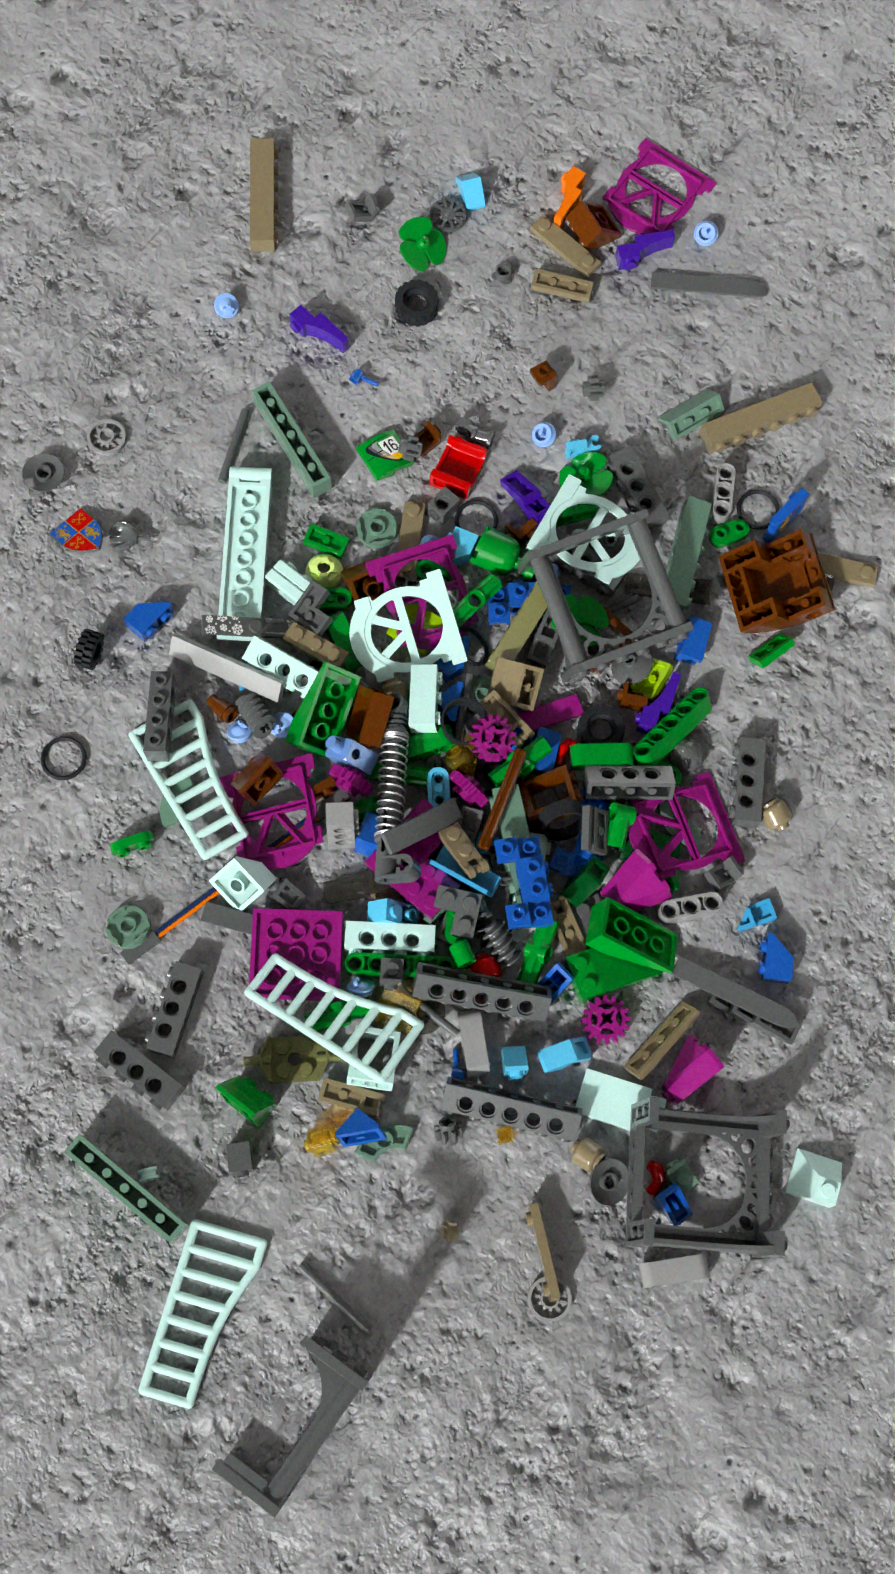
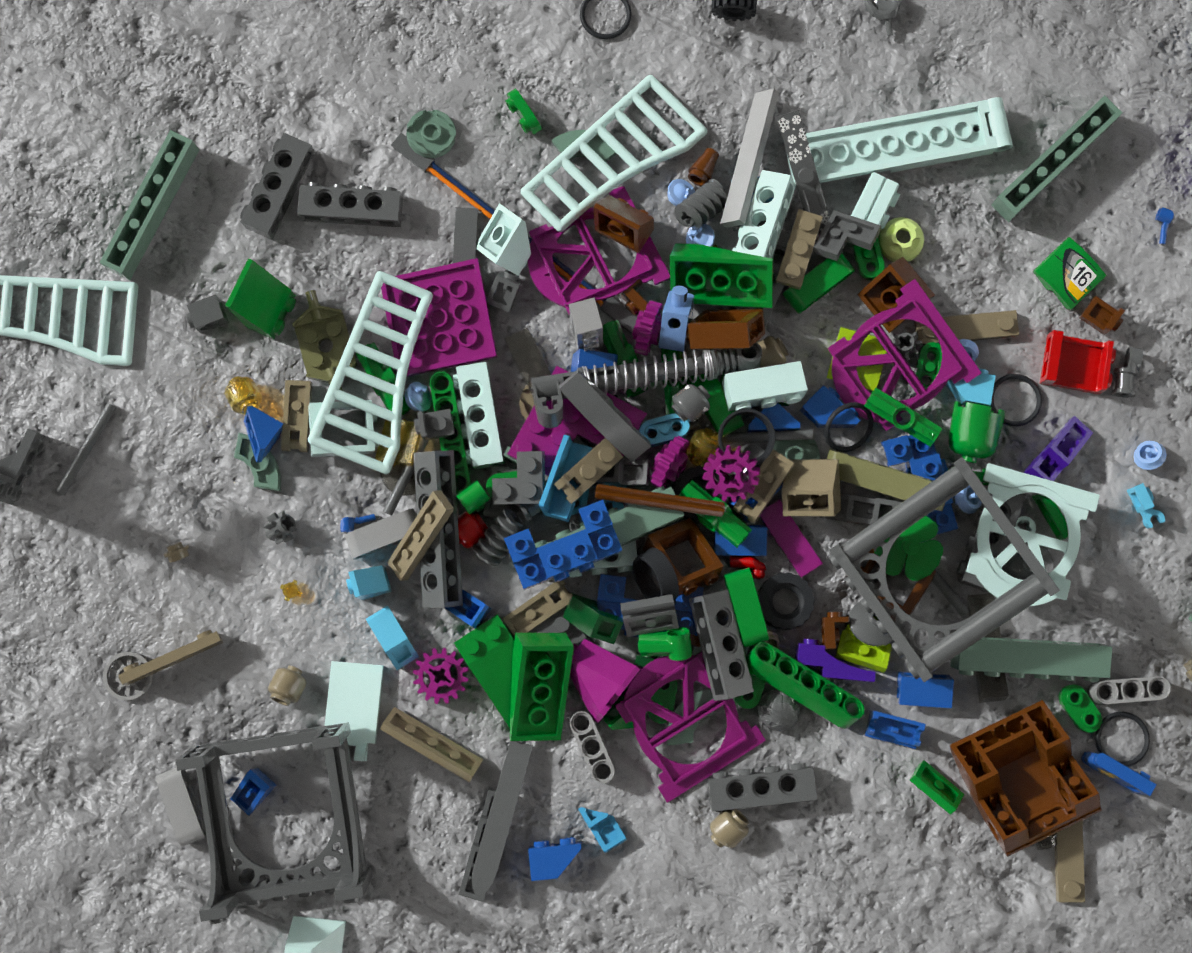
camera: 85 degrees right, 10 degrees up
(147, 618) = (790, 57): blue slope -> none
(148, 1174) = (171, 224): light aqua bush -> none
(160, 716) = (673, 100): dark grey brick -> none
(233, 445) = (1039, 97): dark grey bar -> none
(326, 541) = (939, 232): green plate -> none
(377, 539) = (963, 297): sand green tile -> none
(391, 911) = (507, 411): medium azure slope -> none
(410, 448) = (1083, 298): dark grey gear -> none
(424, 758) = (691, 402): none -> dark grey head
(430, 589) = (850, 295): light aqua window -> none
(446, 498) = (1031, 356): dark grey brick -> none
(485, 1005) = (420, 535): none -> dark tan plate
(504, 1099) = (317, 591): brick -> none
(524, 533) = (1009, 458): reddish brown bracket -> none
(537, 953) = (497, 583): green piece -> none
(584, 468) = (1122, 516): green piece -> none
(616, 1184) = (257, 722): dark grey dish -> none
(628, 461) = (1141, 564): dark grey brick -> none
(658, 1177) = (279, 768): red arm -> none
(681, 1174) = (286, 794): sand green bracket -> none
(690, 1070) = (401, 781): magenta slope -> none
(720, 671) = (894, 729): none -> blue hinge
(724, 874) = (641, 779): dark grey bracket -> none

